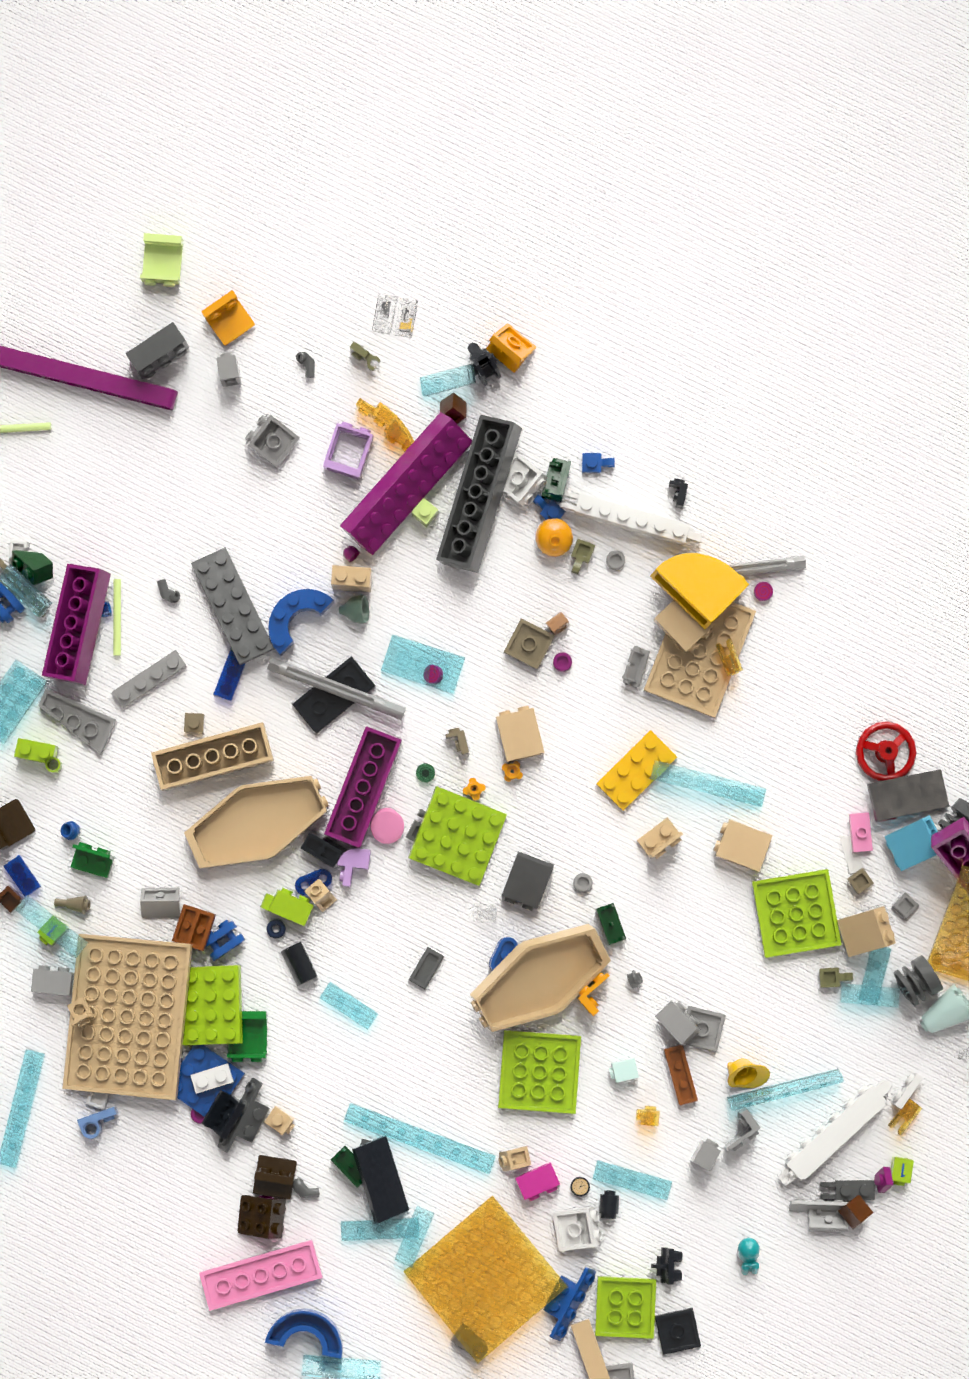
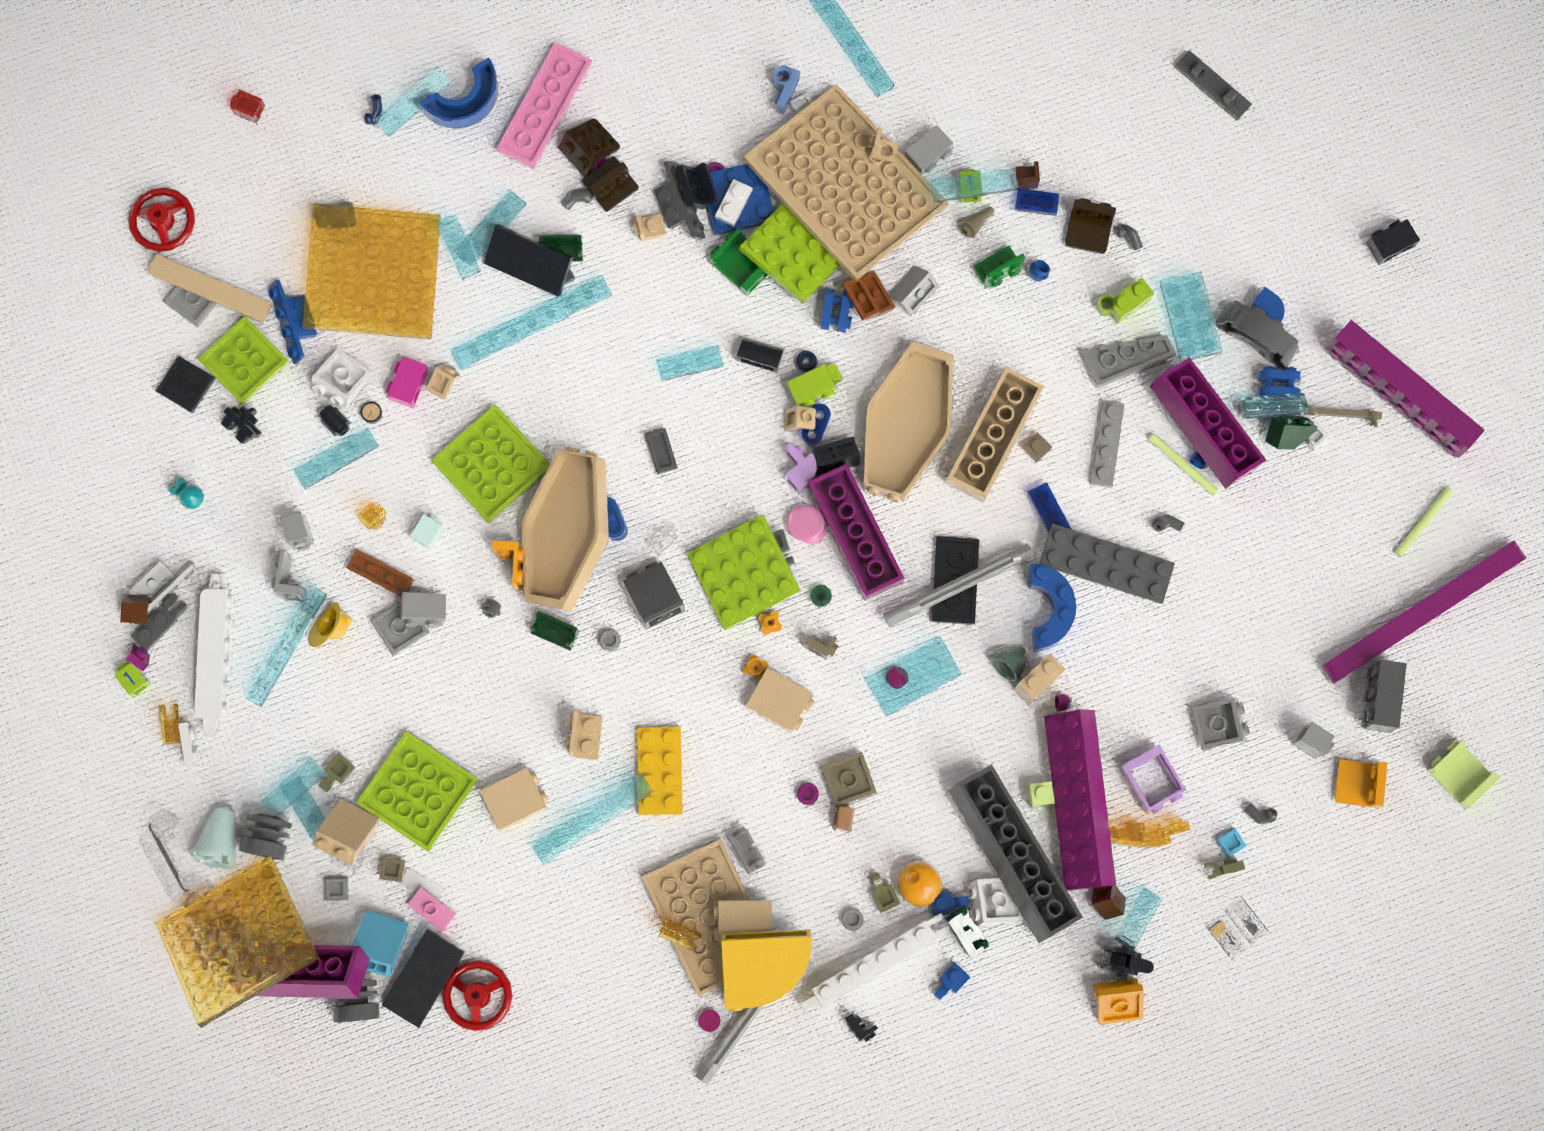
camera: 135 degrees right, 5 degrees down
(342, 366) = (1231, 842): none -> medium azure tile

